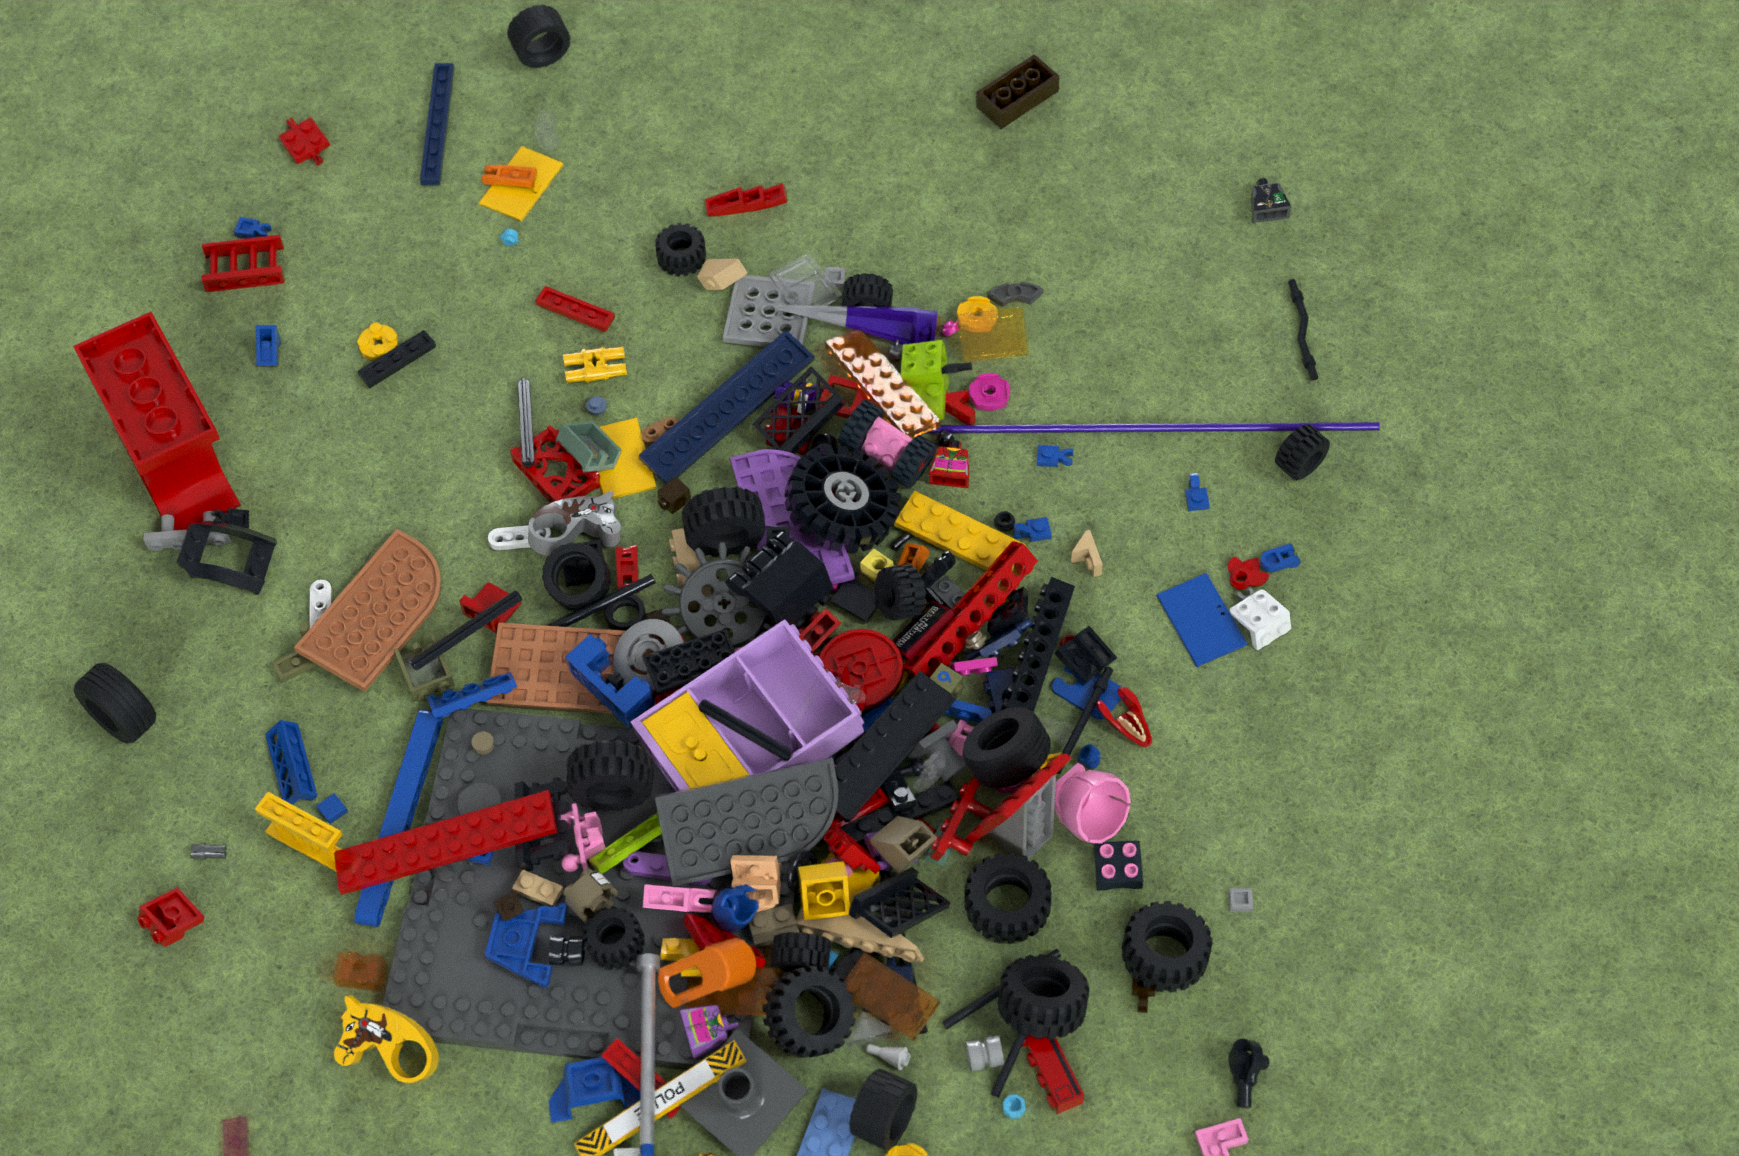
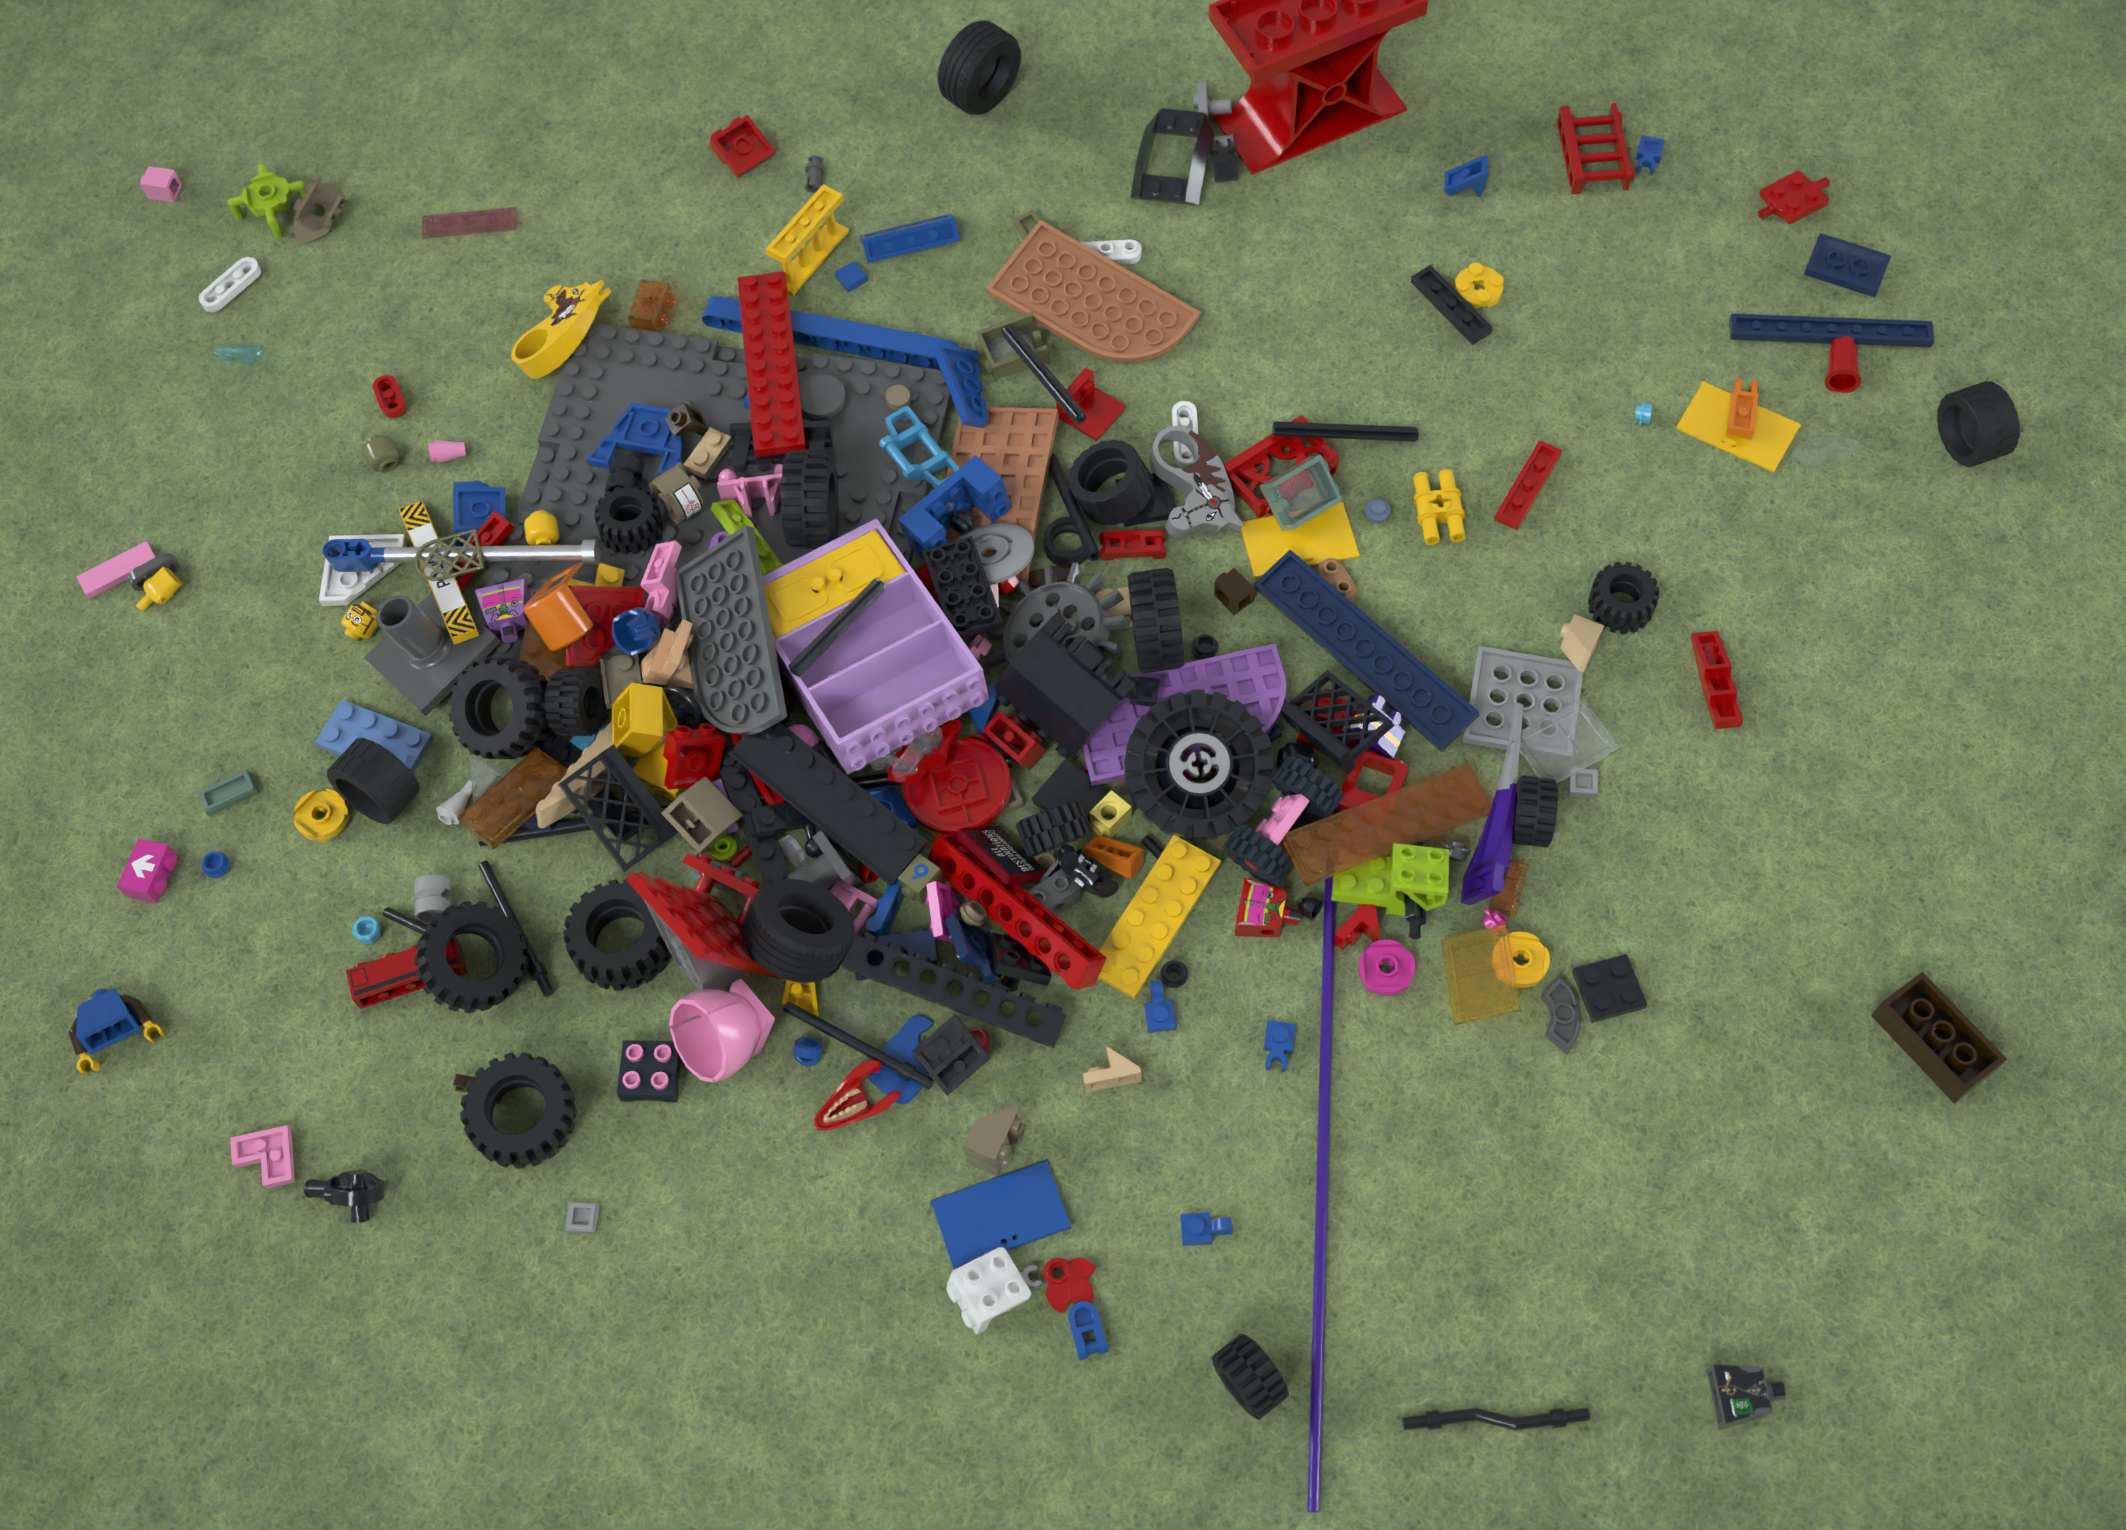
camera: 95 degrees right, 5 degrees up
(375, 111) = (1847, 265): none -> dark blue plate
(472, 116) = (1843, 367): none -> red plant
(518, 1134) = (444, 451): none -> bright pink cone
(549, 701) = (895, 443): none -> dark azure bar
(622, 1011) = (541, 529): none -> yellow head
(656, 1087) = (473, 533): none -> olive window
(993, 267) = (1609, 988): none -> black plate
(1152, 617) = (992, 1140): none -> dark tan slope

